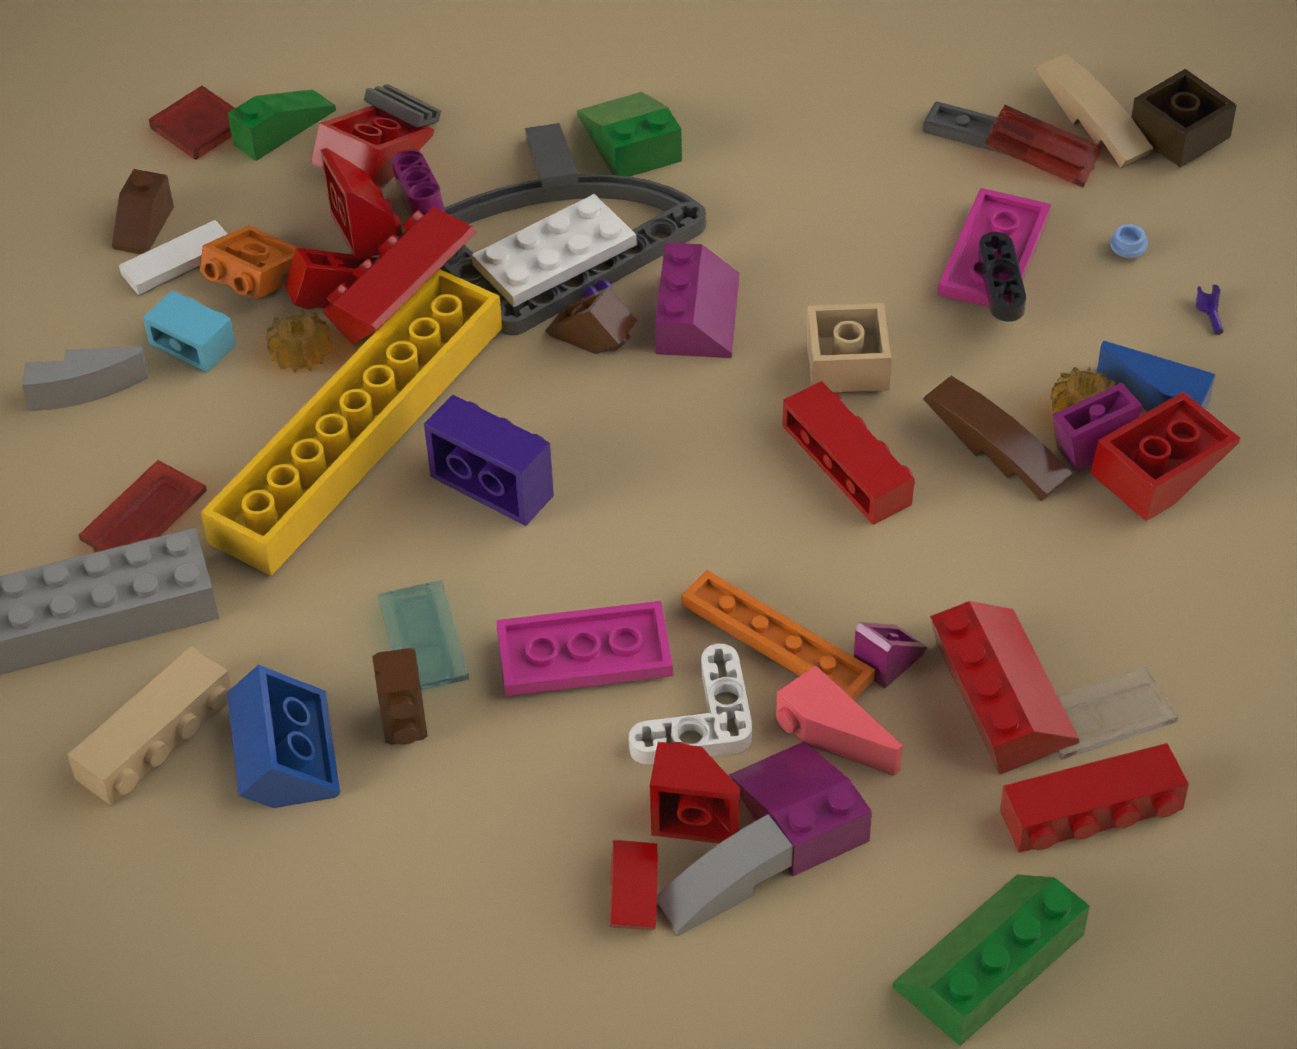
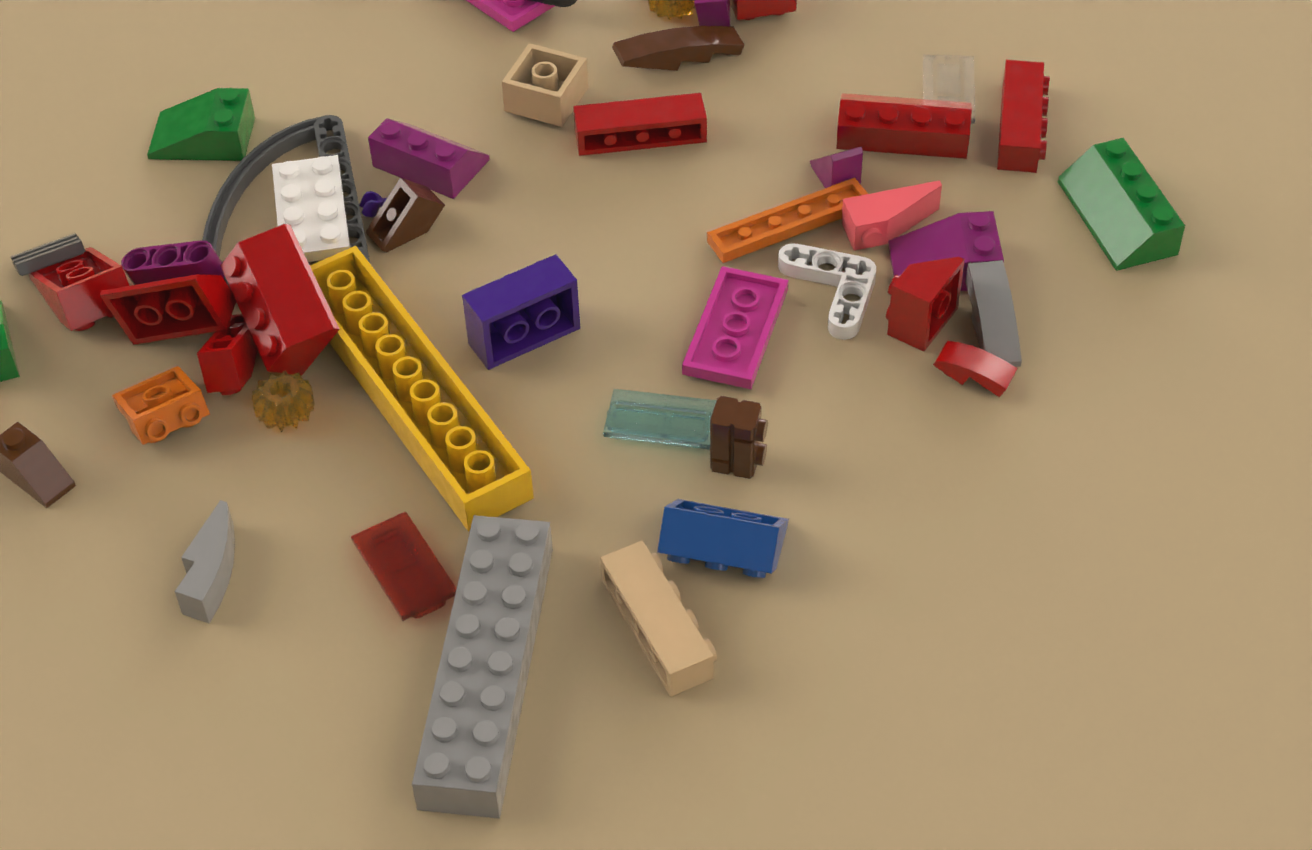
camera: 65 degrees left, 0 degrees up
(169, 258) = (102, 461): white tile -> none
(189, 331) = (212, 471): medium azure brick -> none
(551, 156) = (196, 180): dark grey tile -> none

